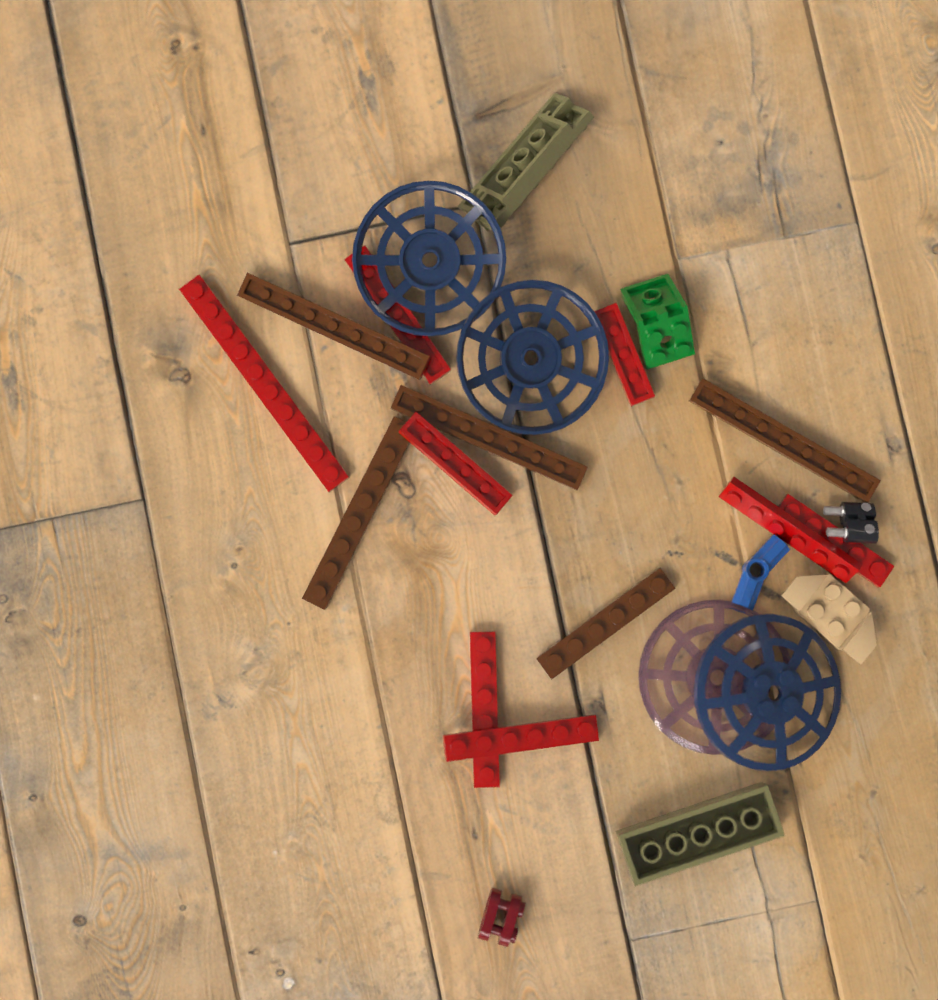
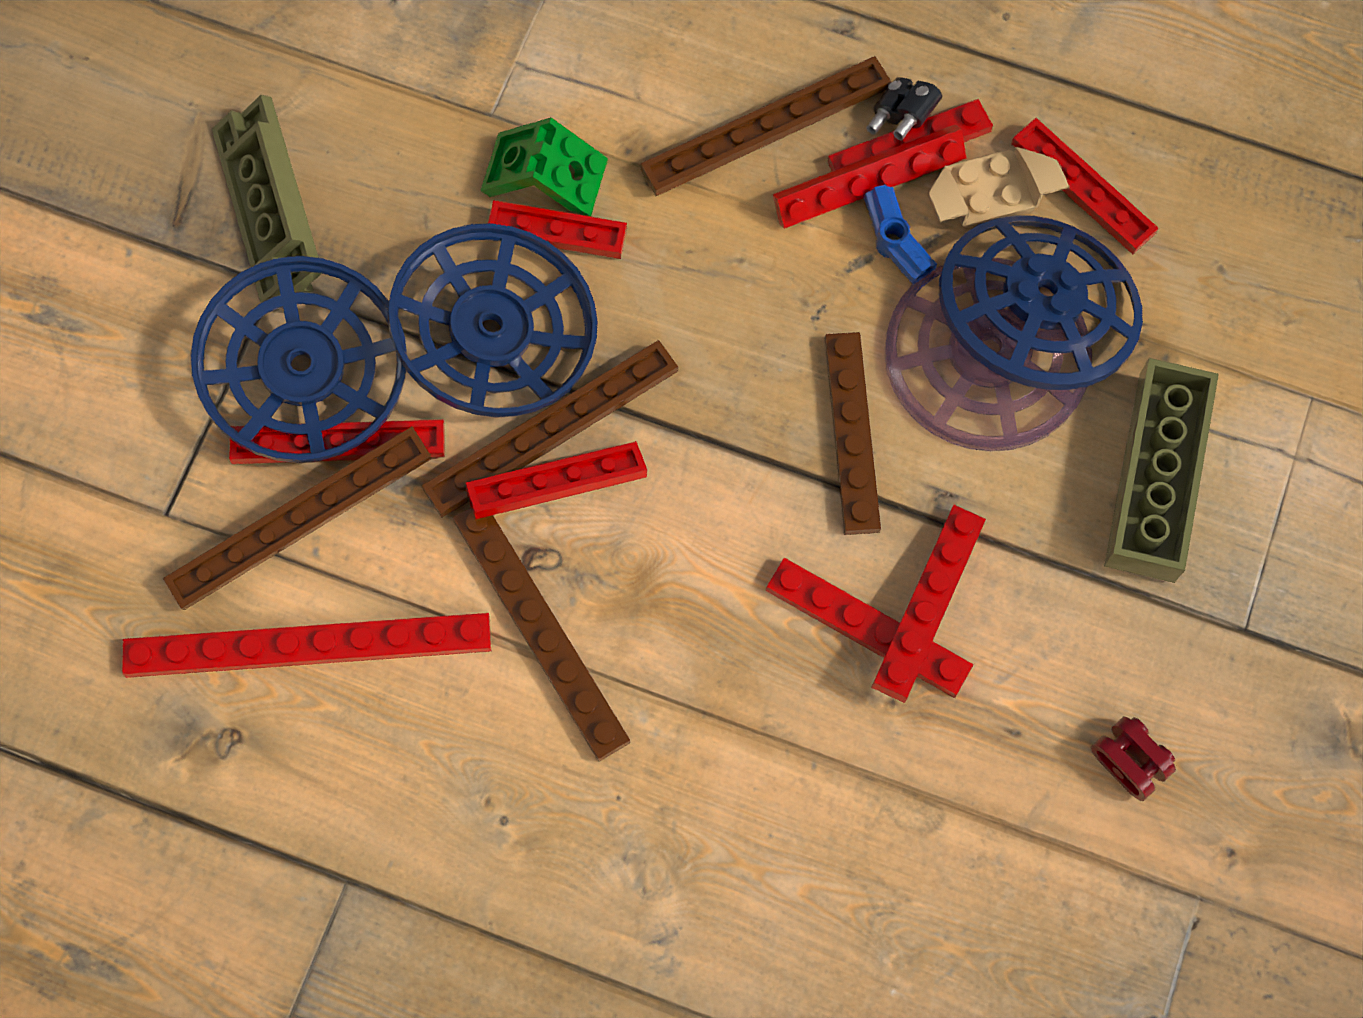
camera: 65 degrees left, 15 degrees down
(874, 673) = (1089, 188): none -> red plate

